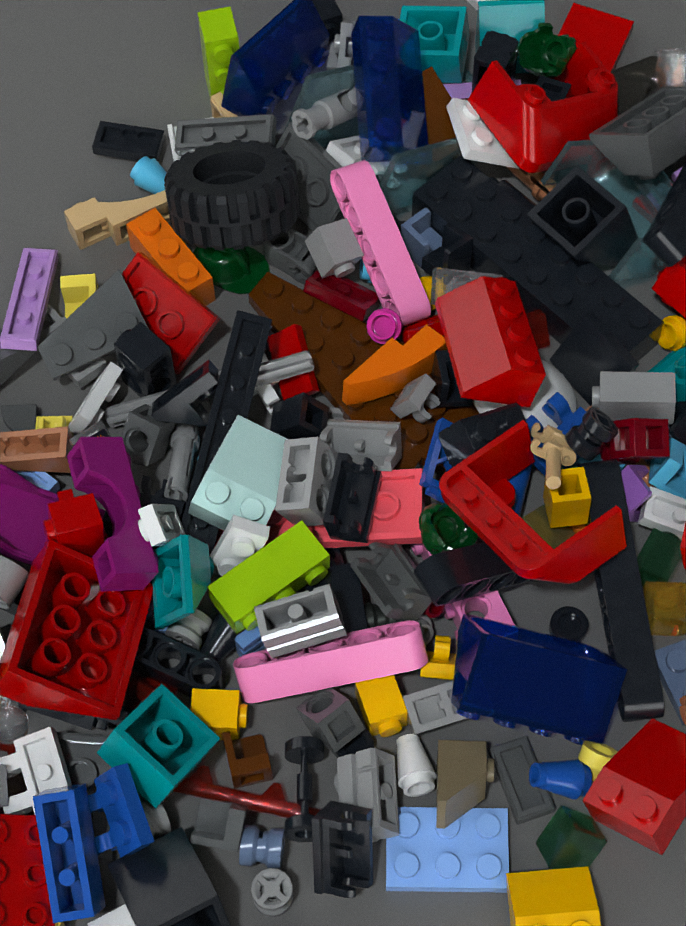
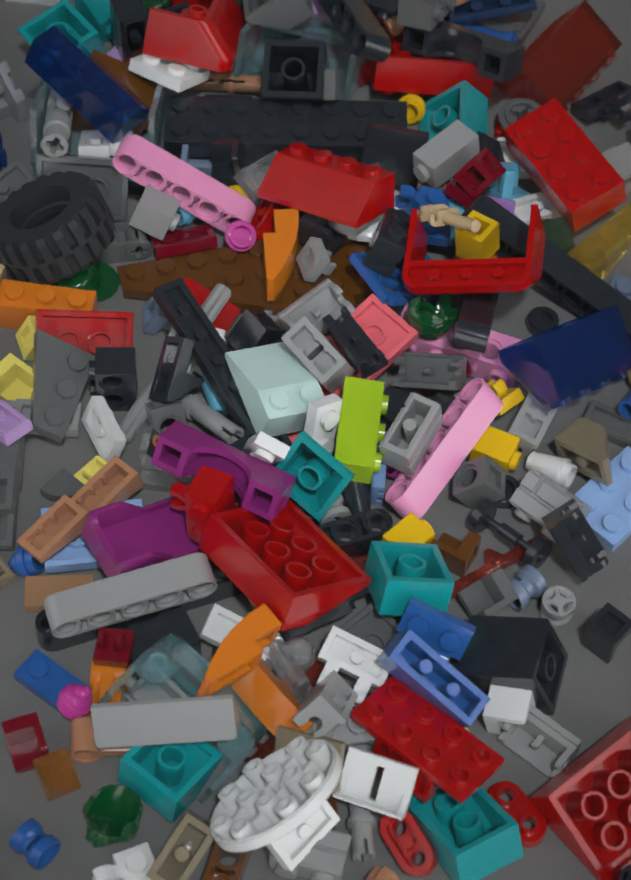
camera: 50 degrees left, 5 degrees down
(591, 434) = (453, 189): black wheel -> none
(605, 252) = (334, 84): none -> dark grey tile

